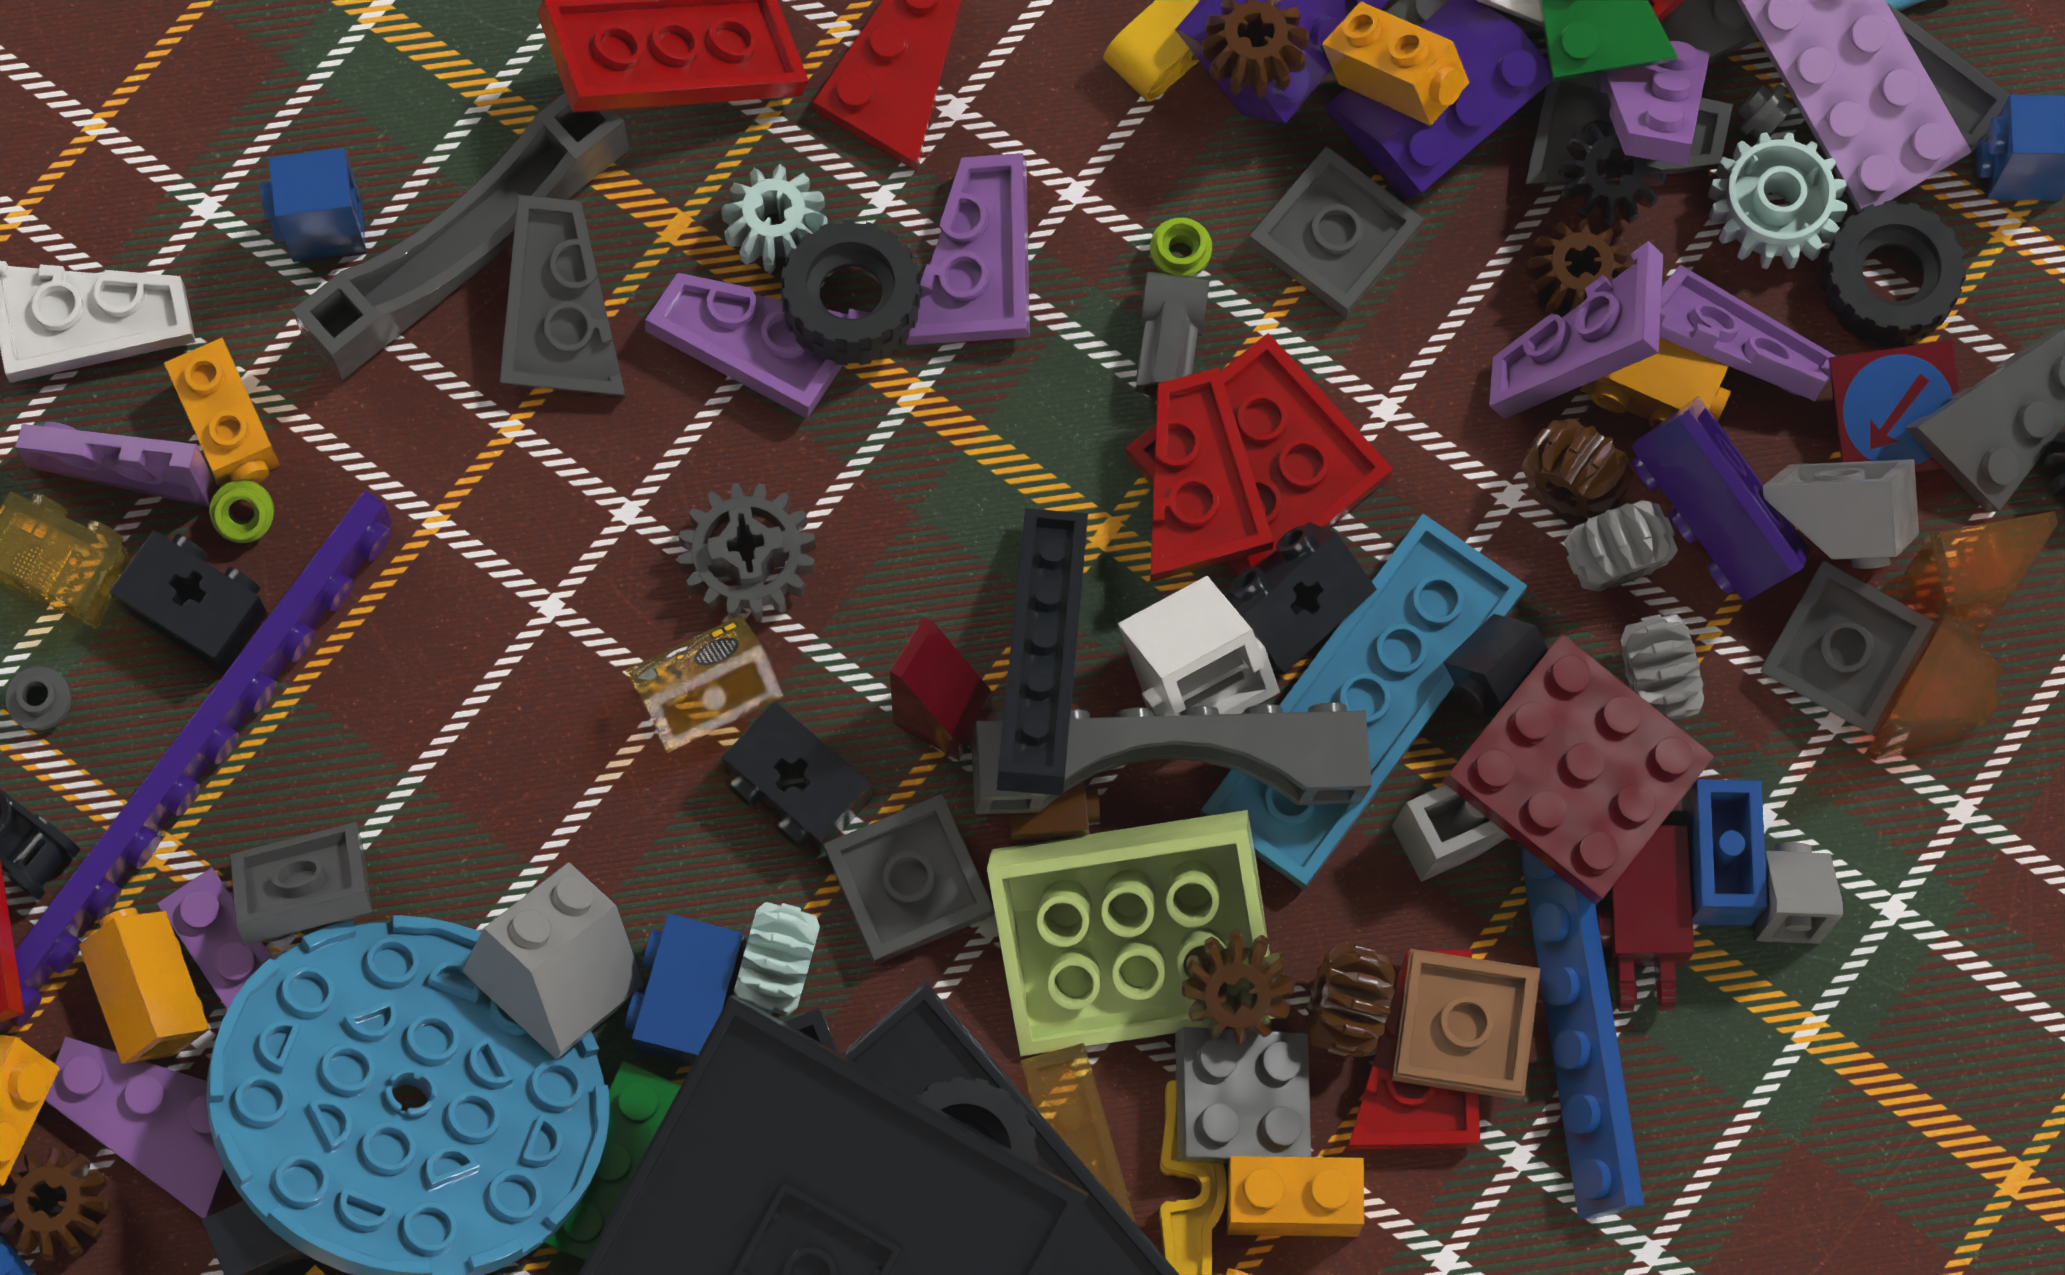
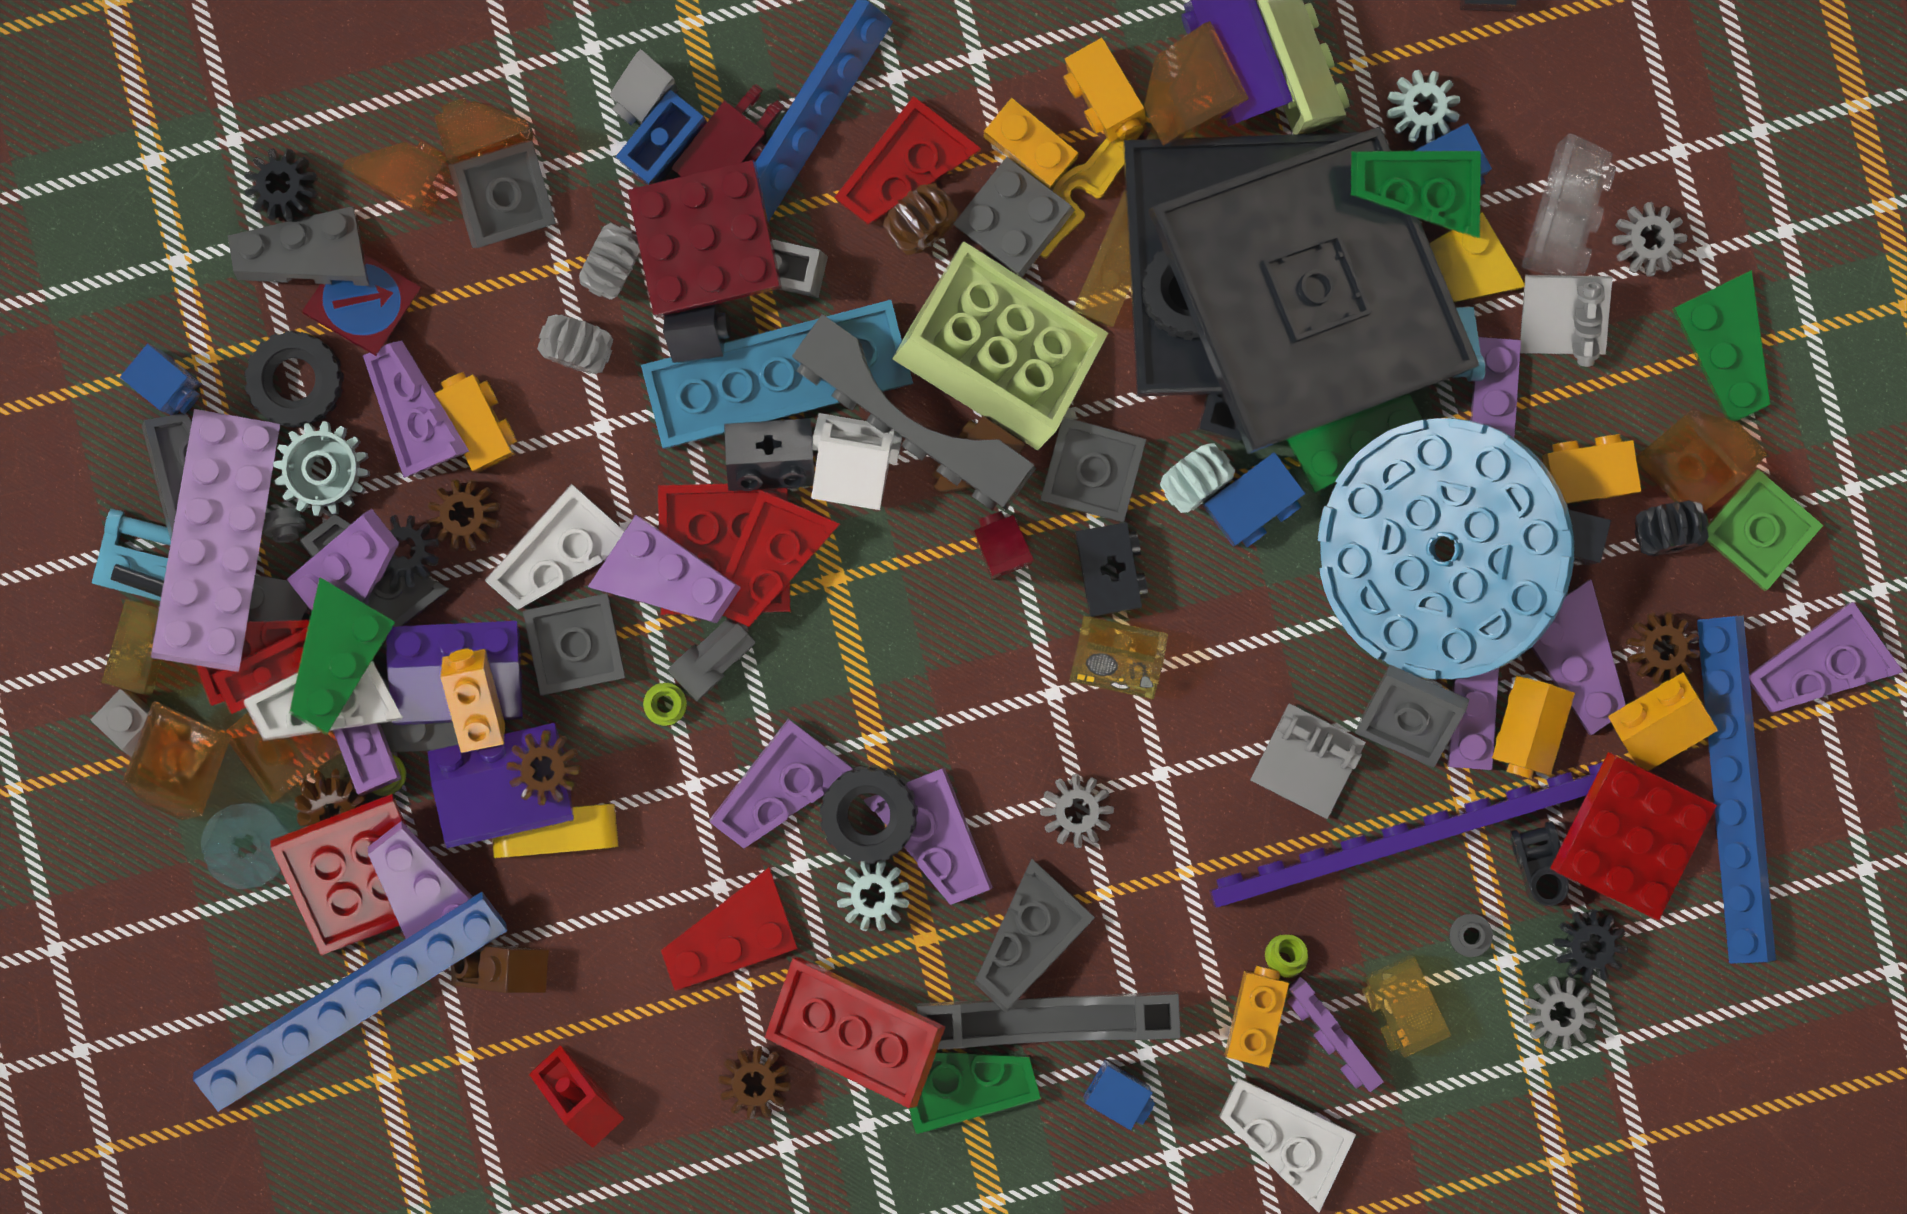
camera: 135 degrees left, 15 degrees up
(209, 631) = (1370, 942): black brick -> none
(387, 748) = (1308, 761): none -> light grey hinge
(489, 102) = (972, 1086): none -> green wing
(557, 961) = (1311, 564): light grey slope -> none
(617, 460) = (1087, 820): none -> light grey gear
(723, 558) = (1054, 725): dark grey gear -> none
(1042, 653) = (934, 521): black plate -> none
(1248, 1006) = (976, 266): reddish brown gear -> none
(1301, 369) = (663, 574): none -> medium lavender wing
(1445, 320) = (557, 548): none -> white wing
(1466, 1024) = (871, 159): medium nougat tile -> none
(1577, 469) = (562, 403): reddish brown gear -> none
(1596, 338) = (500, 464): medium lavender wing -> none
(1719, 501) = (503, 321): dark purple slope -> none
(1850, 507) = (439, 266): light grey slope -> none

